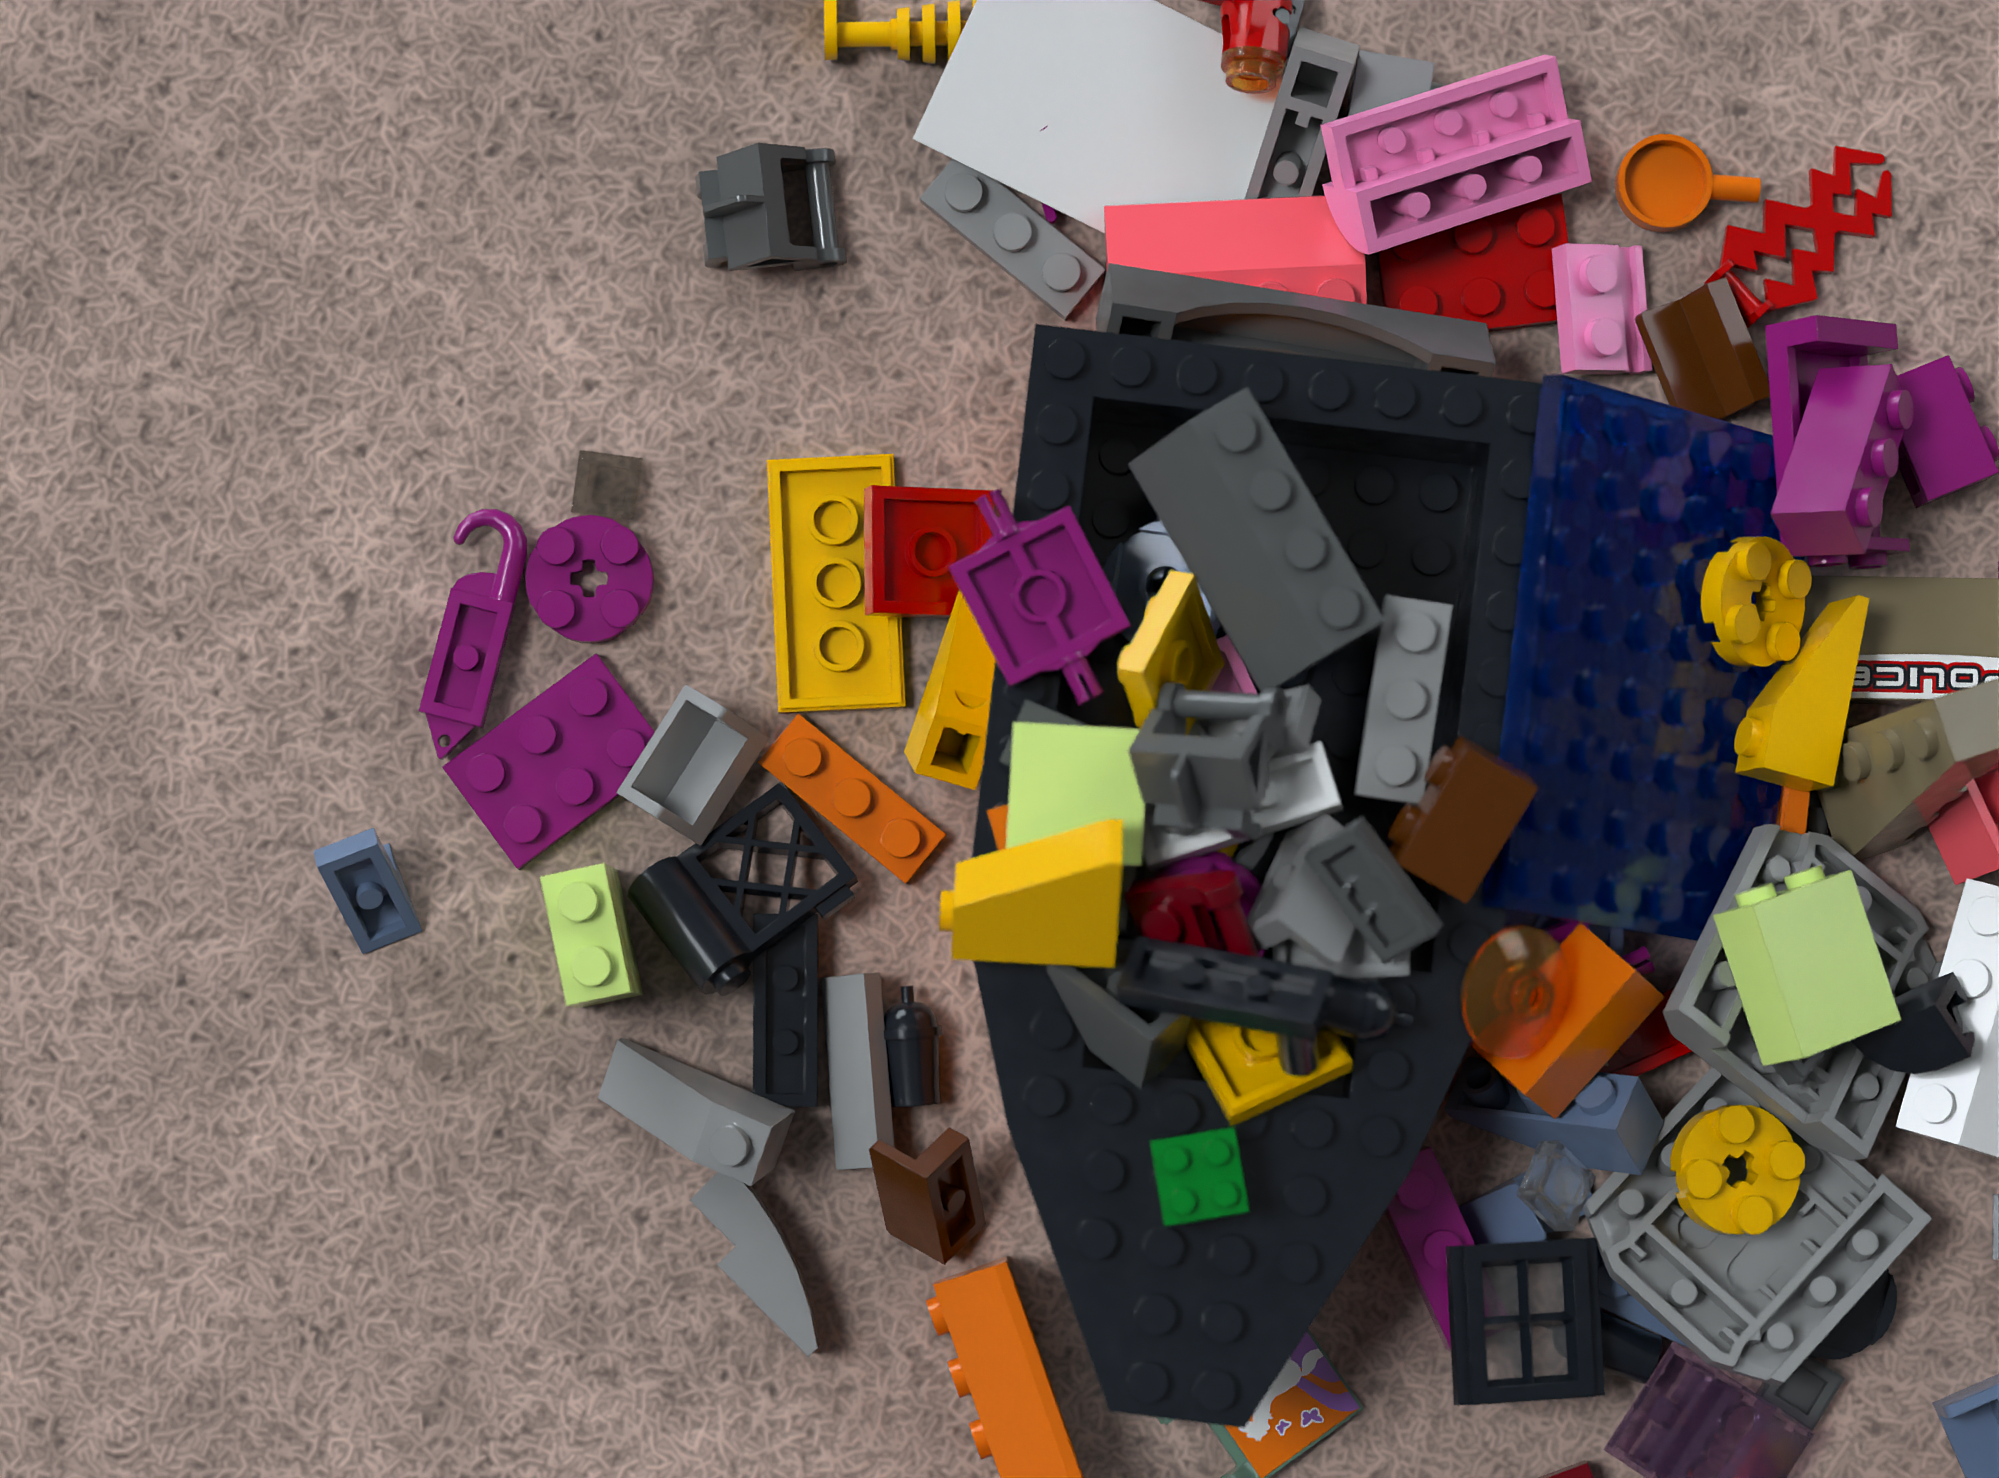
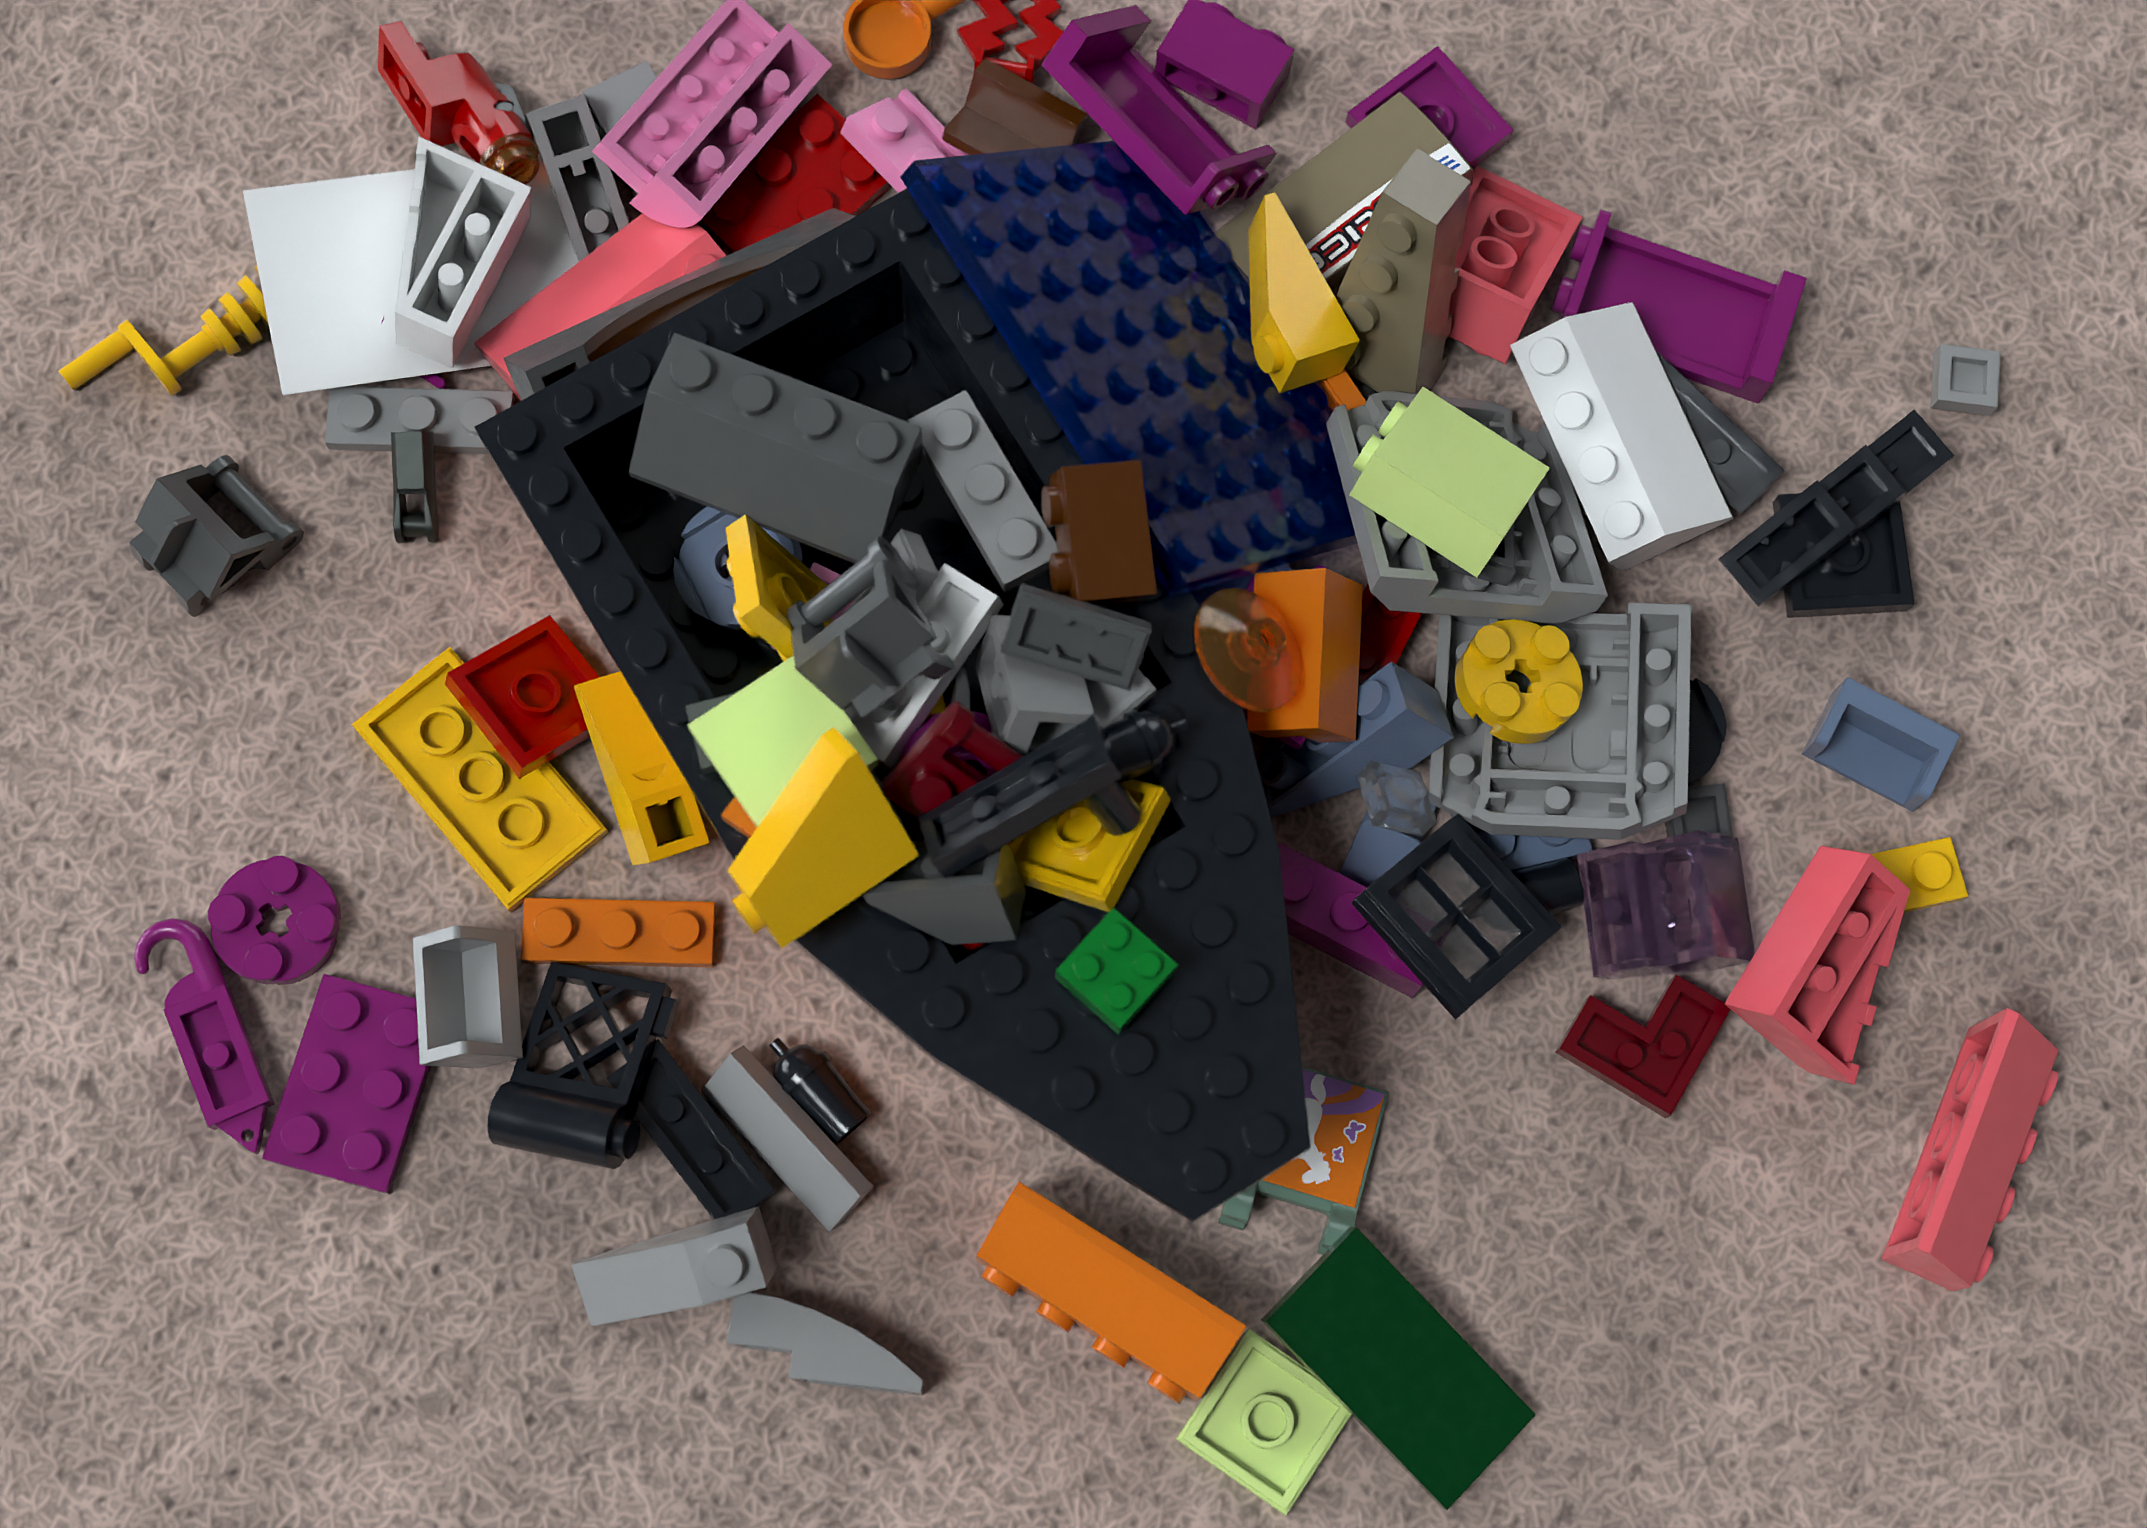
camera: 45 degrees left, 10 degrees down
(368, 890) = (270, 1301): sand blue slope -> none
(591, 935) = (482, 1190): yellowish green brick -> none
(607, 485) = (236, 838): clear smoke tile -> none
(930, 1198) = (918, 1187): reddish brown panel -> none
(968, 286) = (414, 474): none -> pearl dark grey bar
(1039, 596) = (634, 619): magenta plate -> none
(1145, 117) = (455, 249): none -> white wedge
(1762, 631) = (1194, 254): yellow plate -> none
(1842, 460) = (1176, 108): magenta brick -> none
(1928, 1031) = (1576, 472): black brick -> none

